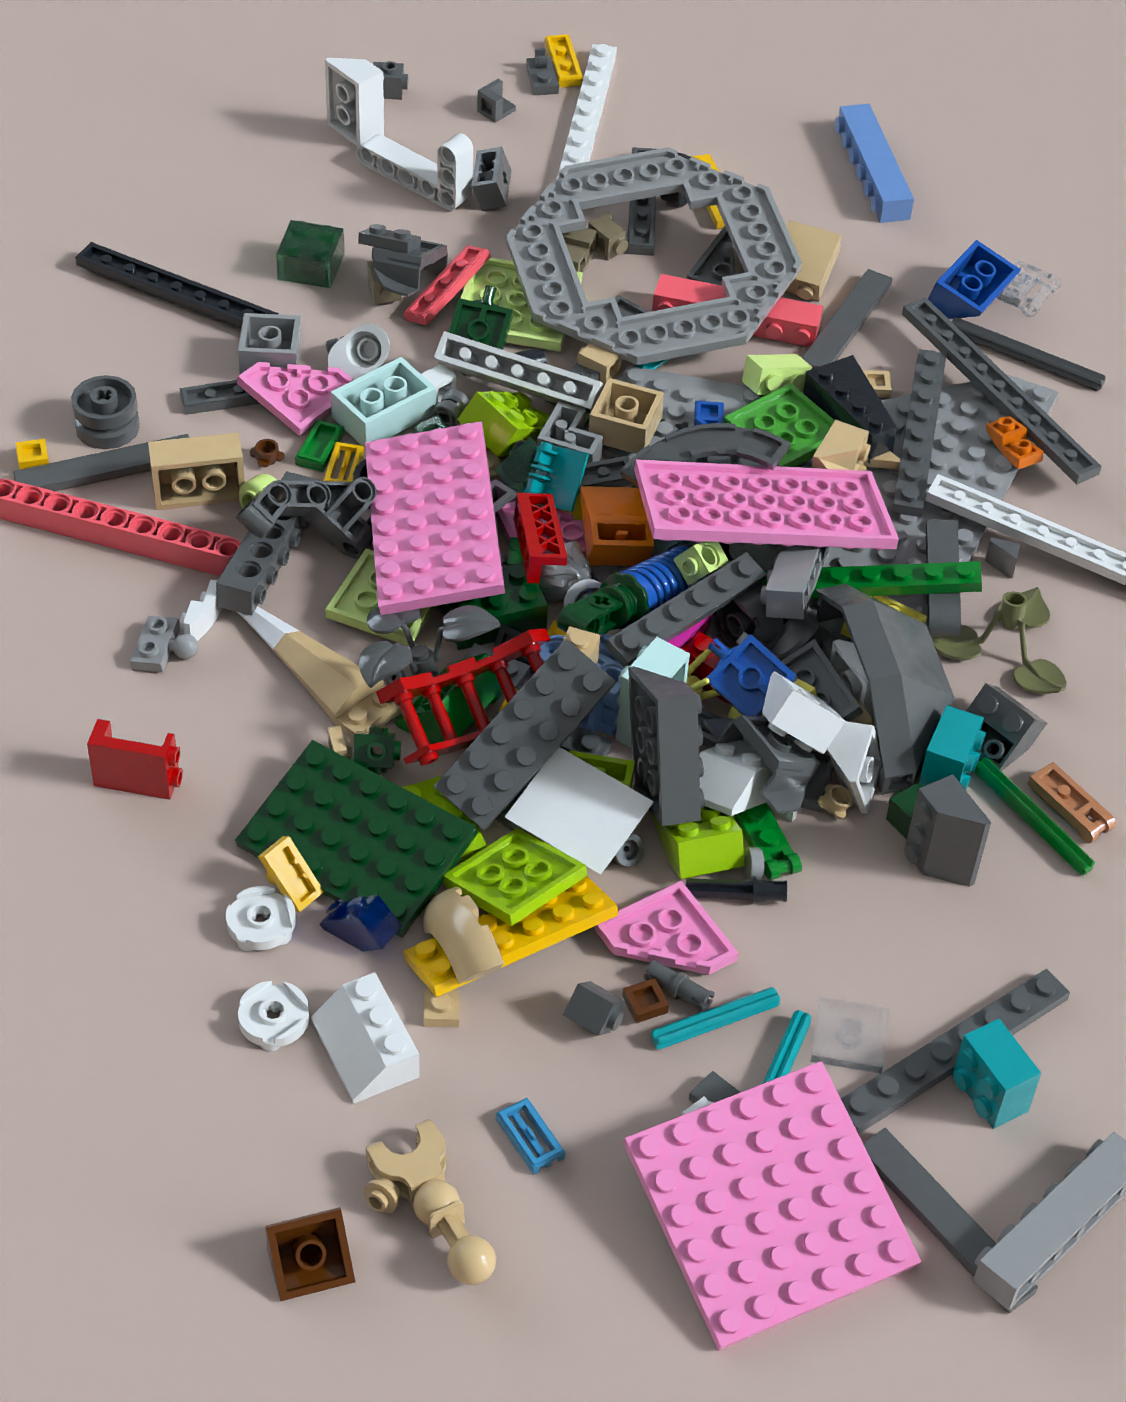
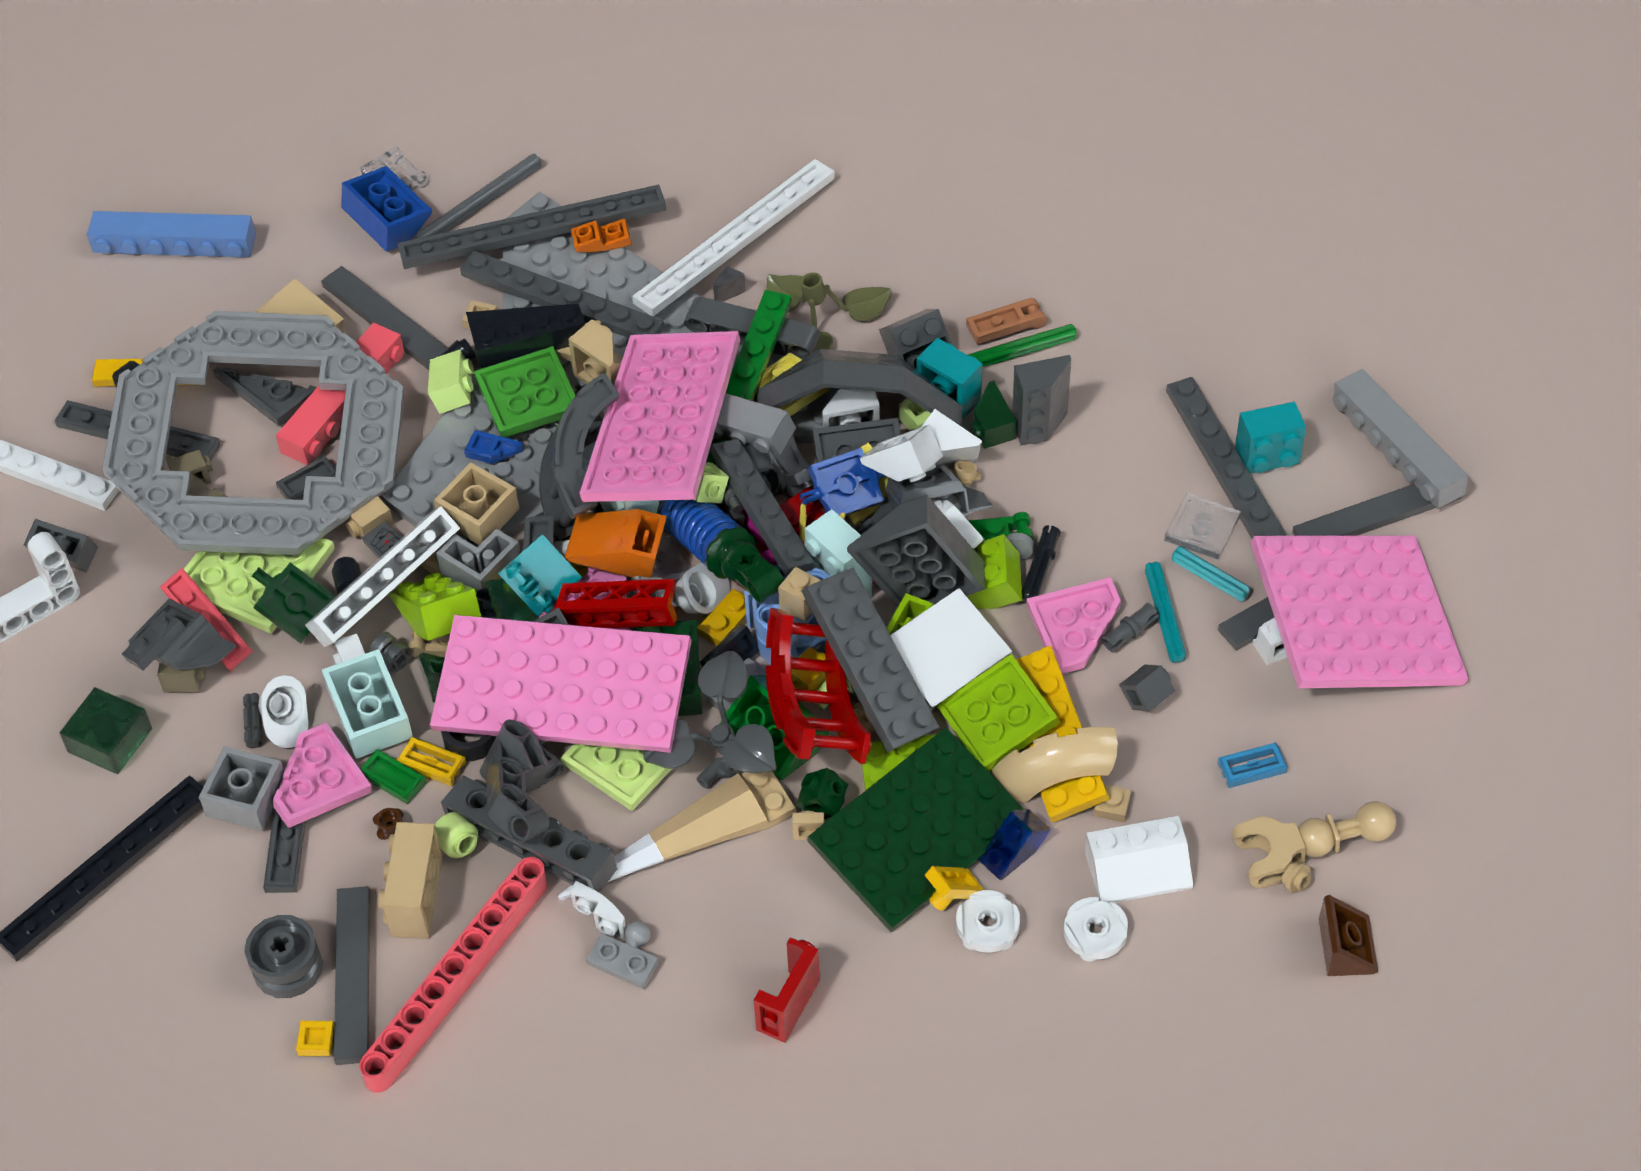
camera: 70 degrees left, 5 degrees up
(645, 1000) = (1140, 652): reddish brown plate -> none

